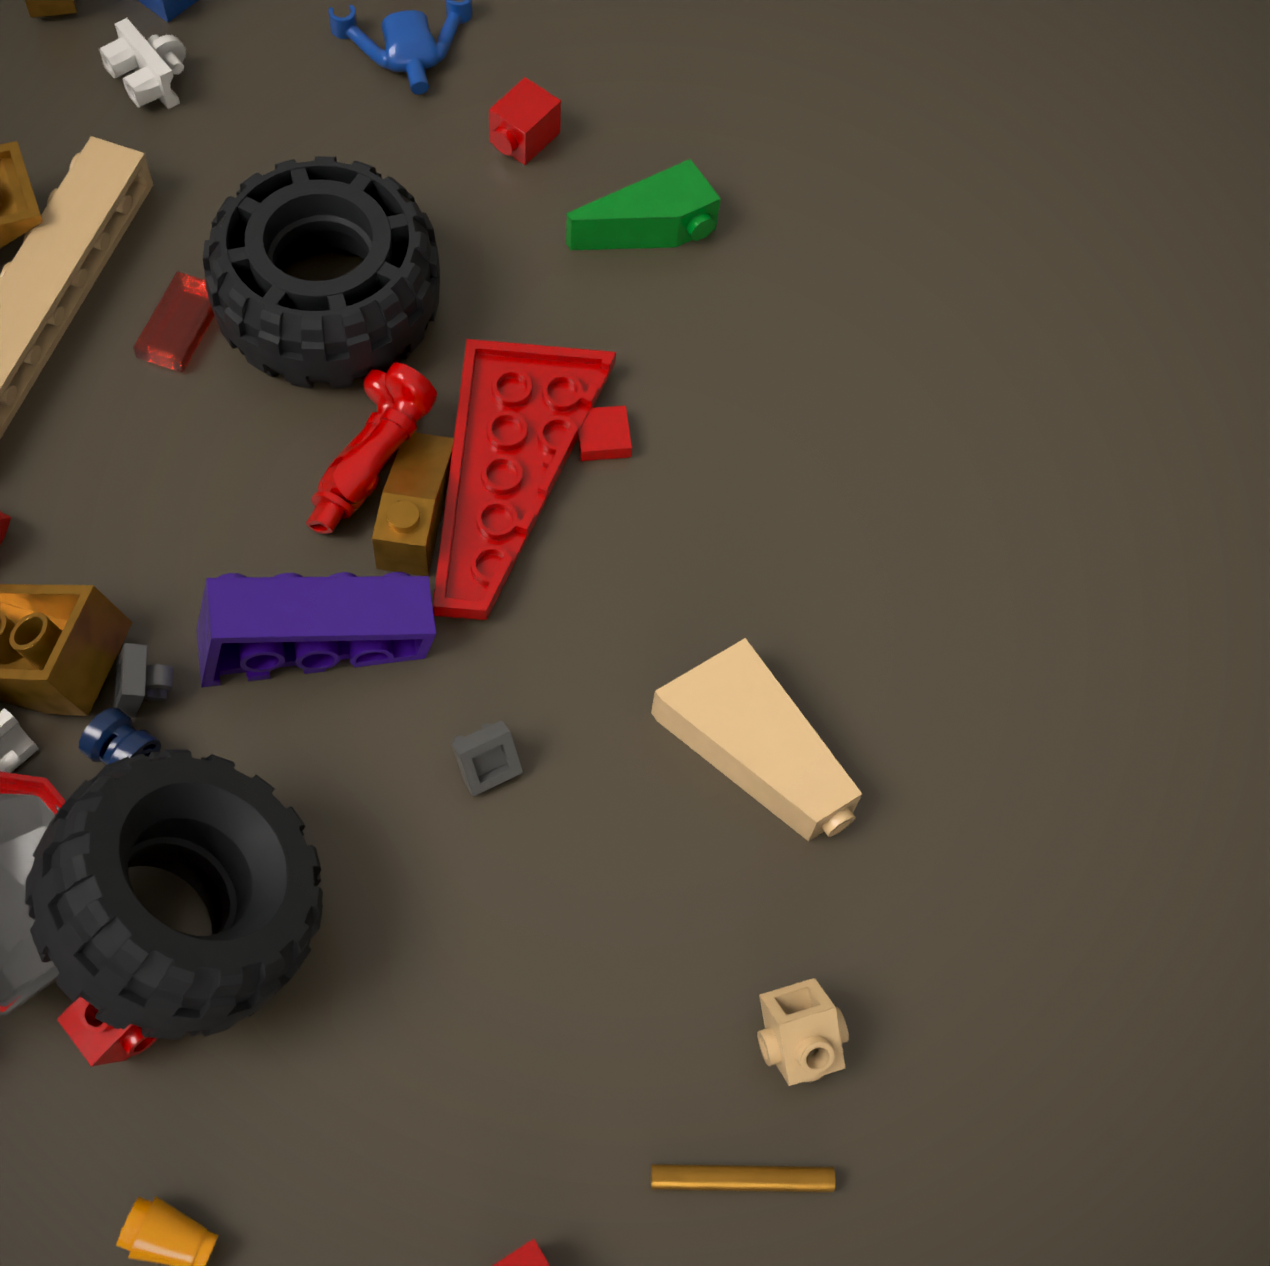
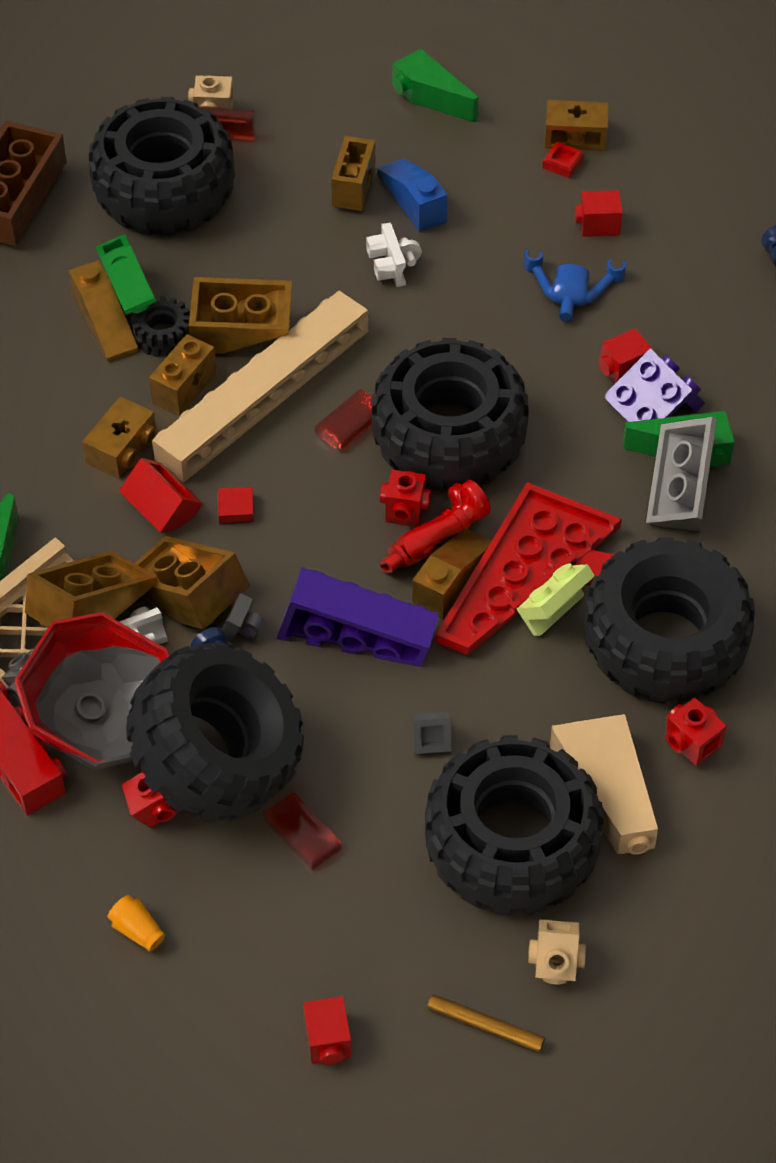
camera: 30 degrees right, 10 degrees down
(61, 502) = (235, 505): none -> red tile
(307, 414) = (405, 497): none -> red brick
(360, 978) = (302, 831): none -> clear red tile
(576, 494) = (554, 597): none -> yellowish green bracket
(579, 158) = (653, 390): none -> bracket
(652, 945) = (504, 869): none -> black tyre
(675, 262) = (681, 474): none -> light grey slope
(759, 419) = (675, 580): none -> black tyre
(841, 626) = (694, 731): none -> red brick

